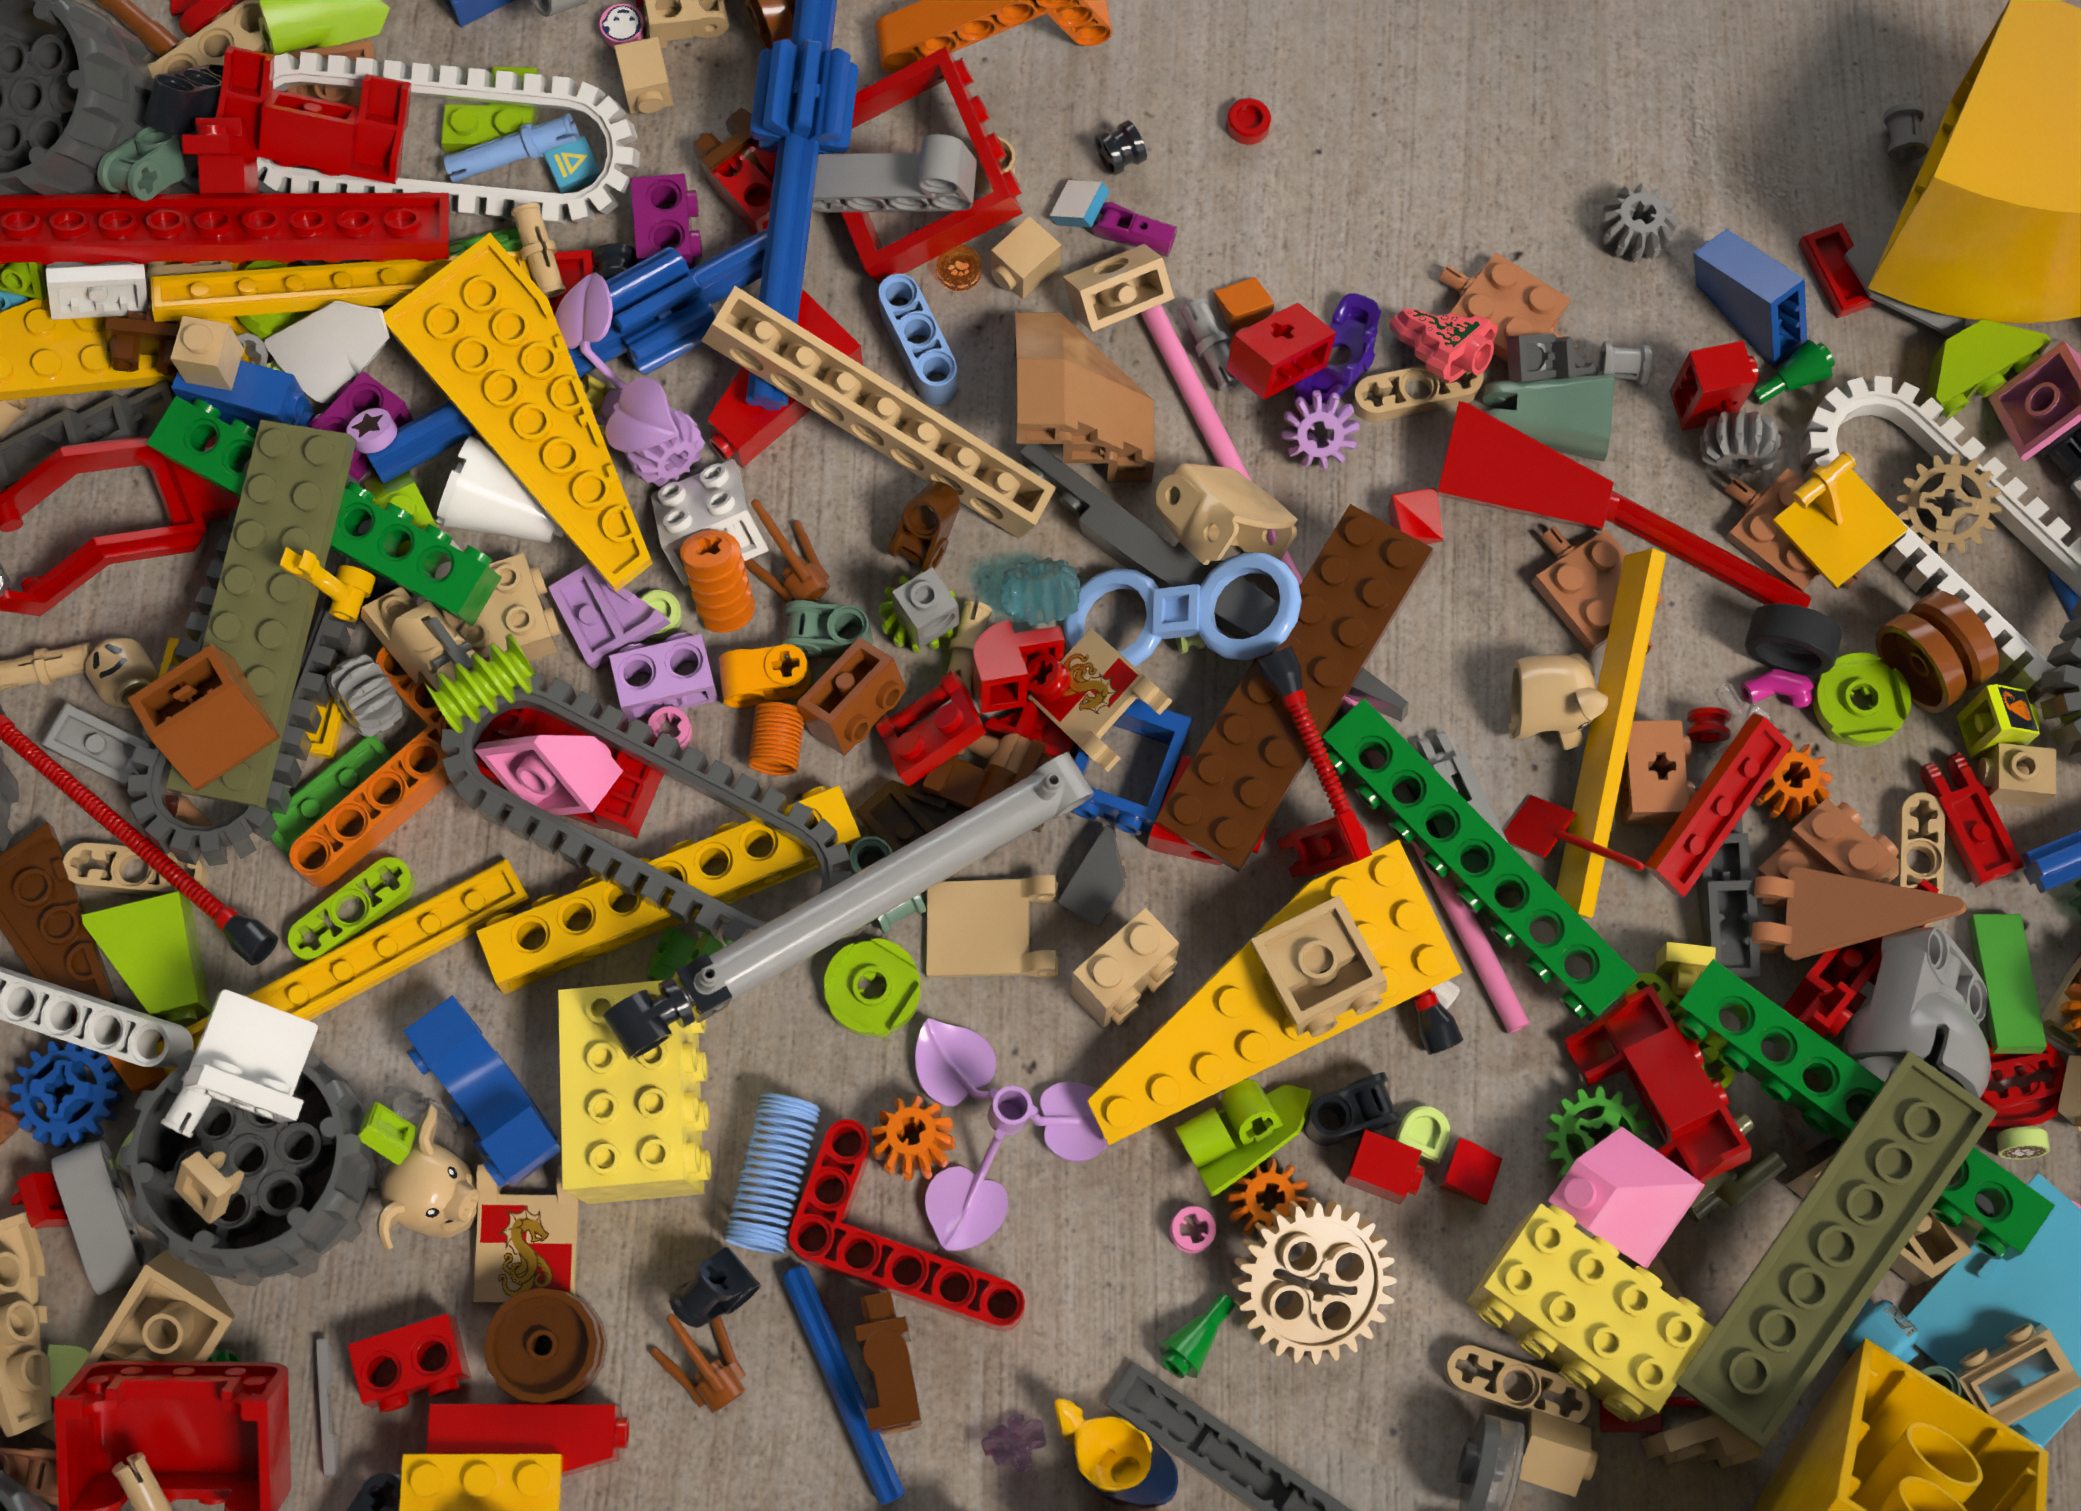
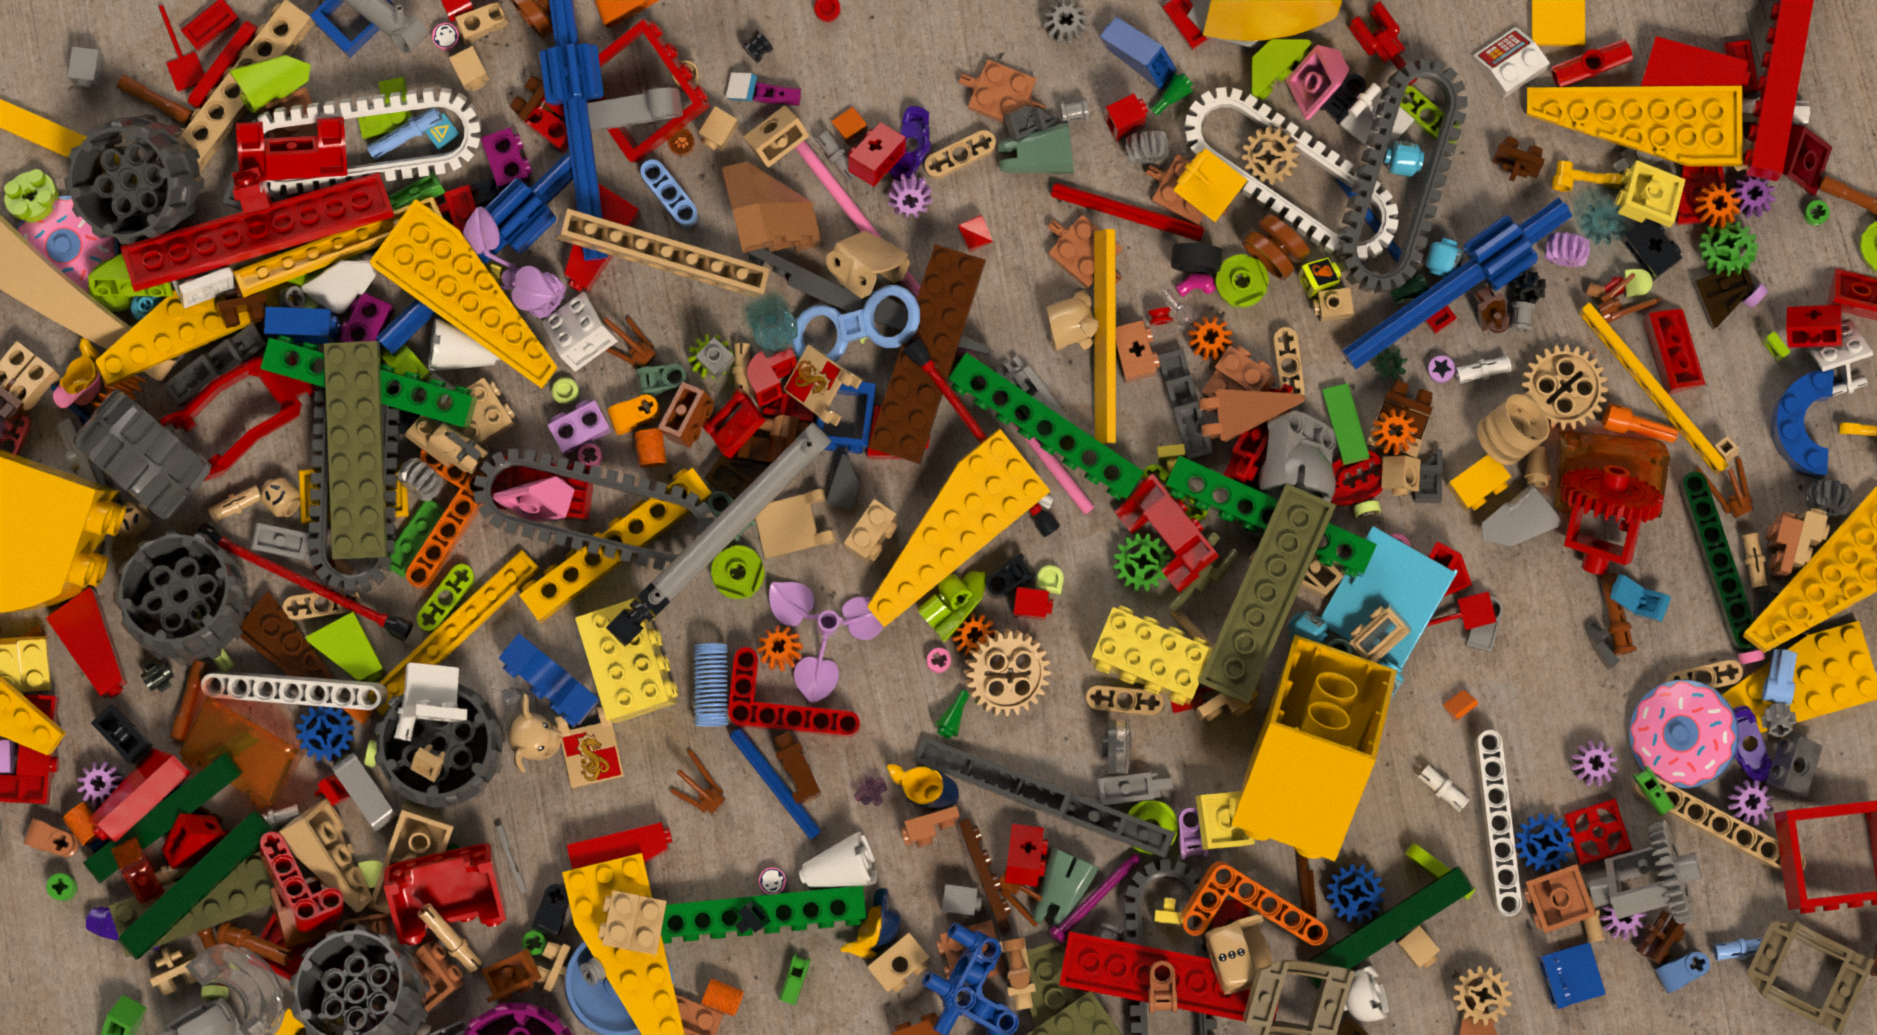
camera: 10 degrees left, 10 degrees up
(143, 164) = (206, 203): sand green piece -> none
(182, 97) = (219, 156): black beam -> none
(204, 716) = (348, 518): dark orange slope -> none
(207, 353) = (282, 311): tan brick -> none
(345, 589) = (394, 424): yellow brick -> none
(372, 430) = (380, 328): lavender tile -> none
(387, 1133) = (507, 713): lime tile -> none
(408, 1350) = (545, 820): red brick -> none
(483, 684) = (490, 465): lime piece -> none
(538, 249) = (441, 196): tan pin -> none
(576, 1350) = (633, 798): reddish brown wheel -> none
(600, 617) = (536, 404): lavender wing -> none
(677, 950) = (632, 581): bright green piece -> none
(717, 1289) = (697, 751): black piece -> none
(718, 580) = (595, 367): orange piece -> none
(925, 533) = (702, 306): reddish brown piece -> none
(1044, 684) = (796, 380): red bush -> none
(1320, 967) = (973, 509): tan plate -> none
(1327, 844) = (963, 439): red hinge -> none
(1447, 342) = (970, 126): coral rock -> none
(1471, 1171) = (1079, 594): red slope -> none
(1515, 473) = (1026, 196): red slope -> none
(1542, 824) = (1080, 394): red piece -> none
(1557, 1453) = (1150, 730): tan brick -> none
(1627, 1195) = (1158, 590): bright pink slope -> none
(1718, 805) = (1170, 365): red plate -> none
(1972, 822) = (1314, 337): red hinge -> none

